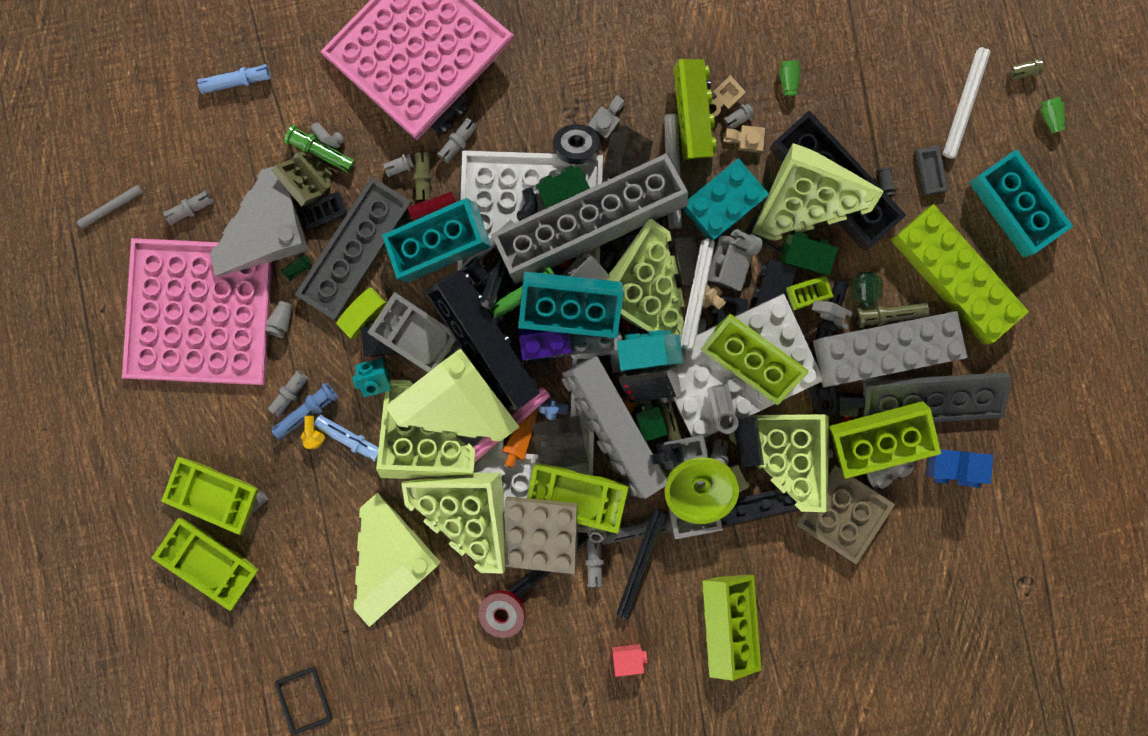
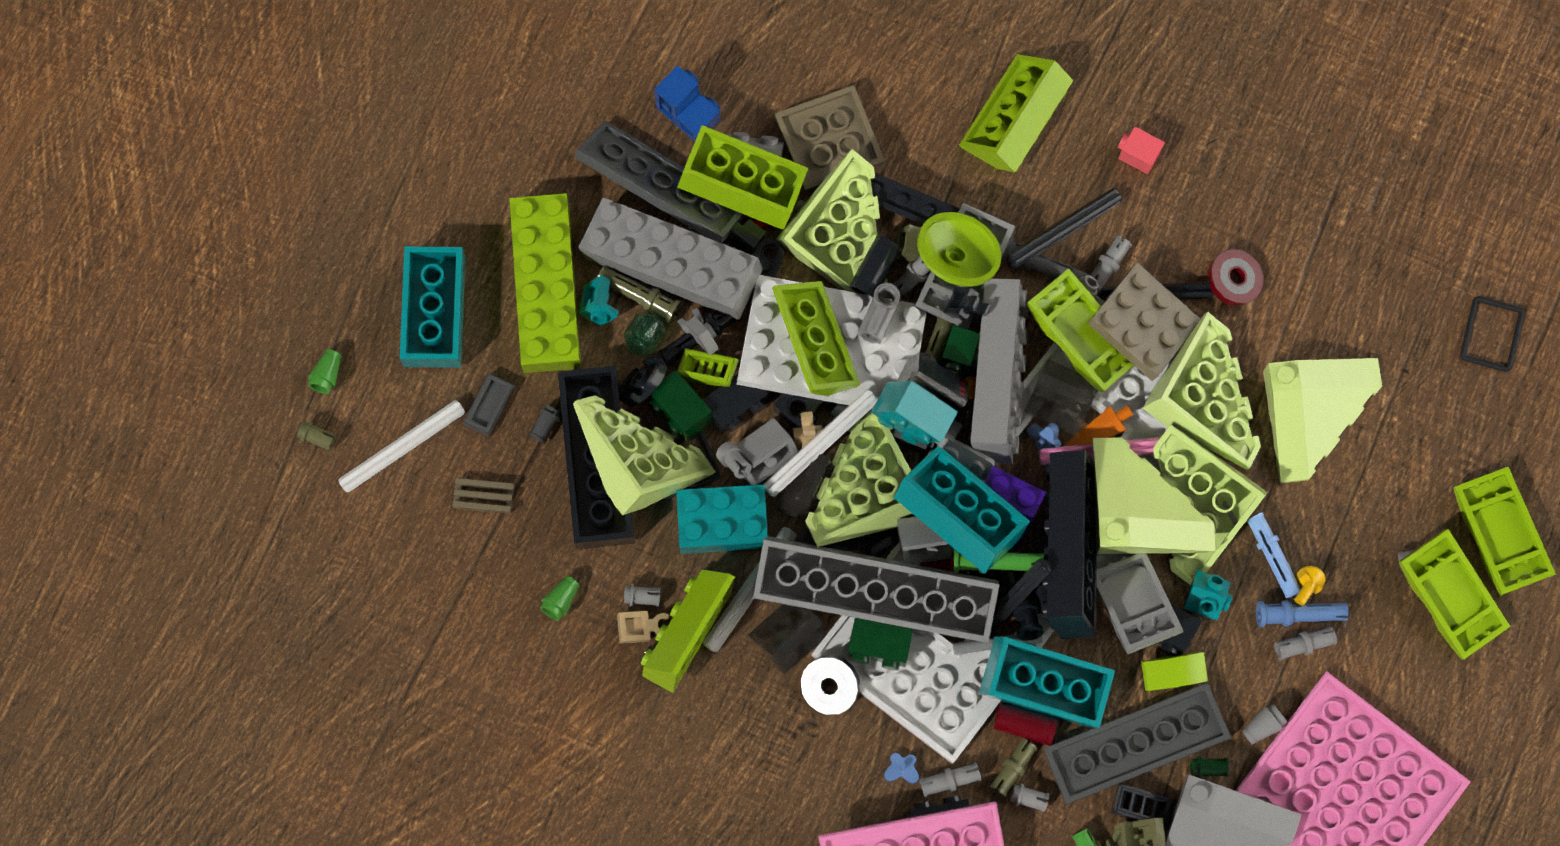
camera: 145 degrees left, 10 degrees down
(493, 128) = (903, 768): none -> medium blue piece
(530, 206) = (926, 650): black arm -> none
(605, 120) = (780, 690): light grey plate -> none
(749, 138) = (648, 567): tan plate -> none
(845, 252) = (642, 382): none -> black tile
(905, 99) = (458, 493): none -> dark tan tile
(916, 287) = (594, 301): none -> teal bracket

